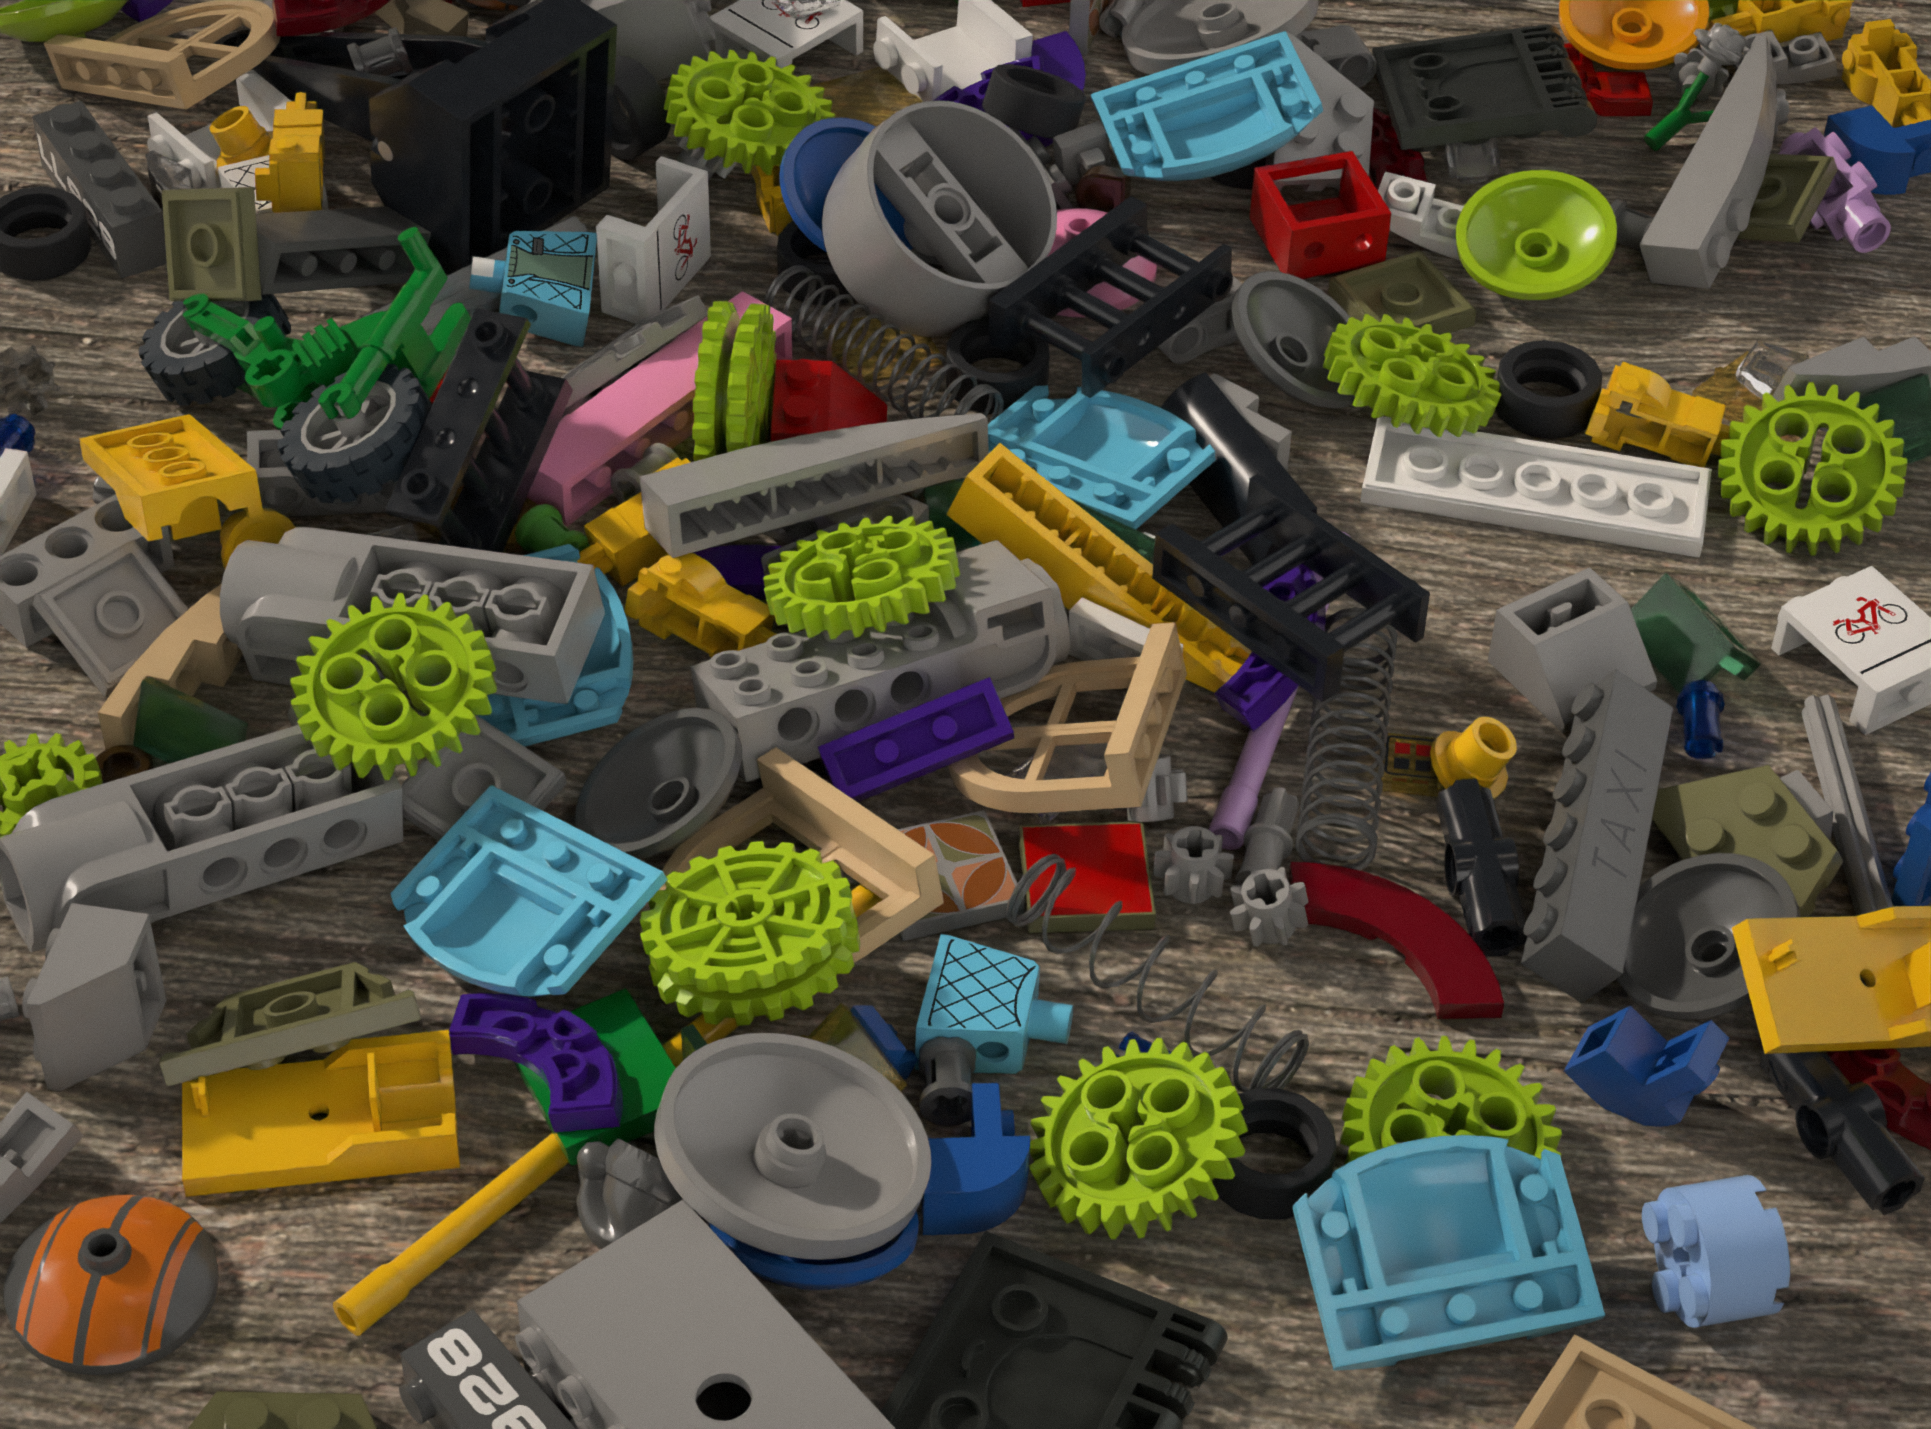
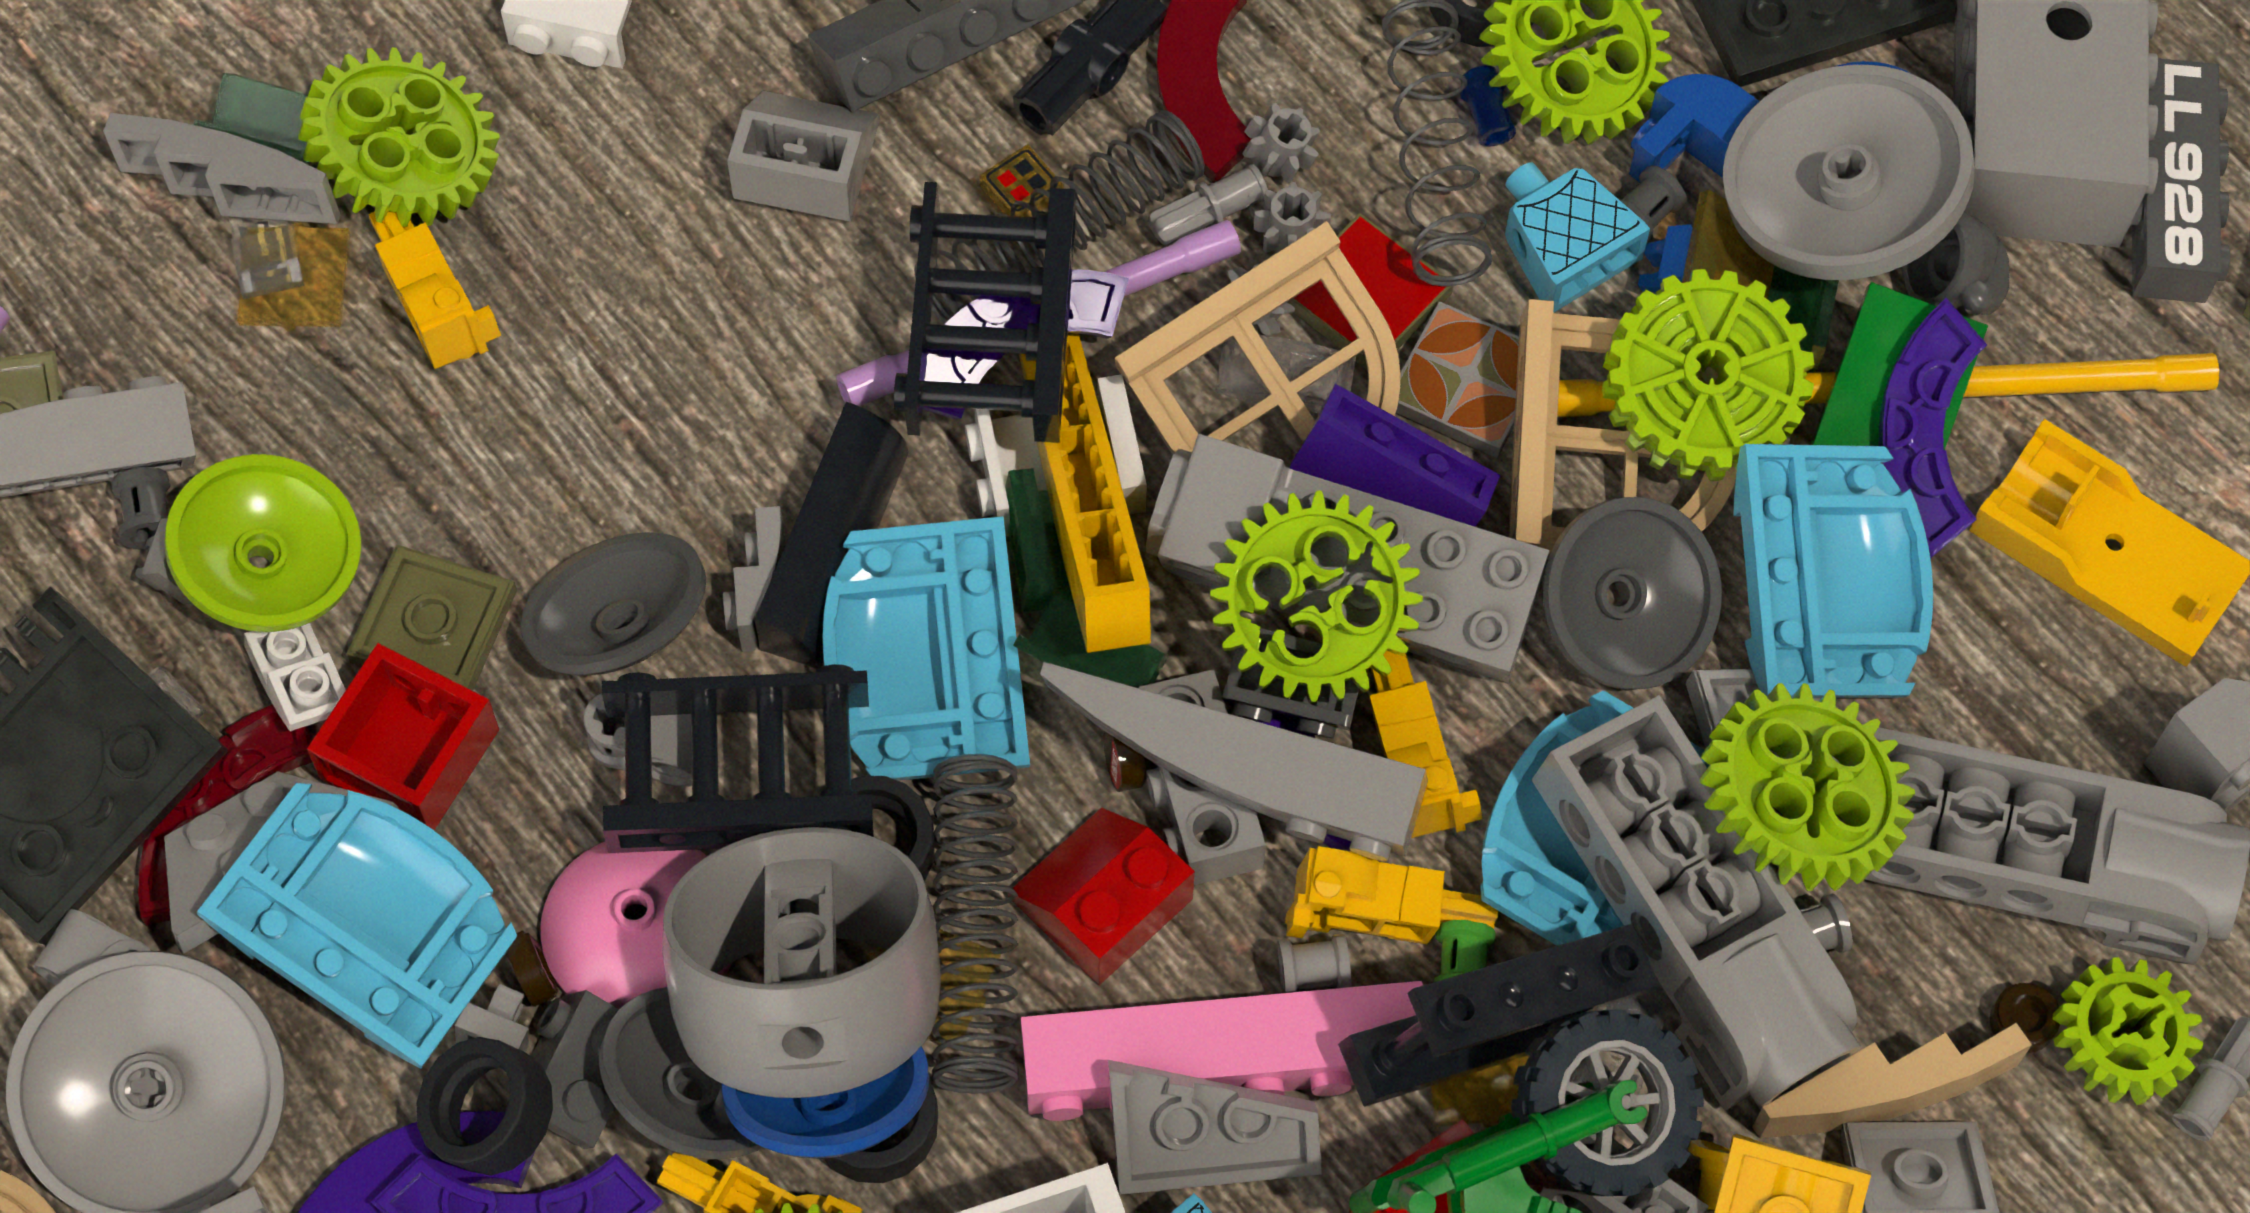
camera: 135 degrees left, 20 degrees up
(181, 726) = (1947, 972): clear green panel -> none
(289, 1017) = (2089, 610): olive wing -> none
(734, 380) = (1201, 911): lime piece -> none
(1411, 375) = (556, 535): lime gear -> none
(1475, 754) = (985, 135): yellow piece -> none
(1539, 487) = (594, 343): white tile -> none
(1549, 363) = (454, 368): black tyre -> none
(1687, 637) = (687, 105): clear green panel -> none
(1701, 709) = (768, 42): clear blue pin -> none

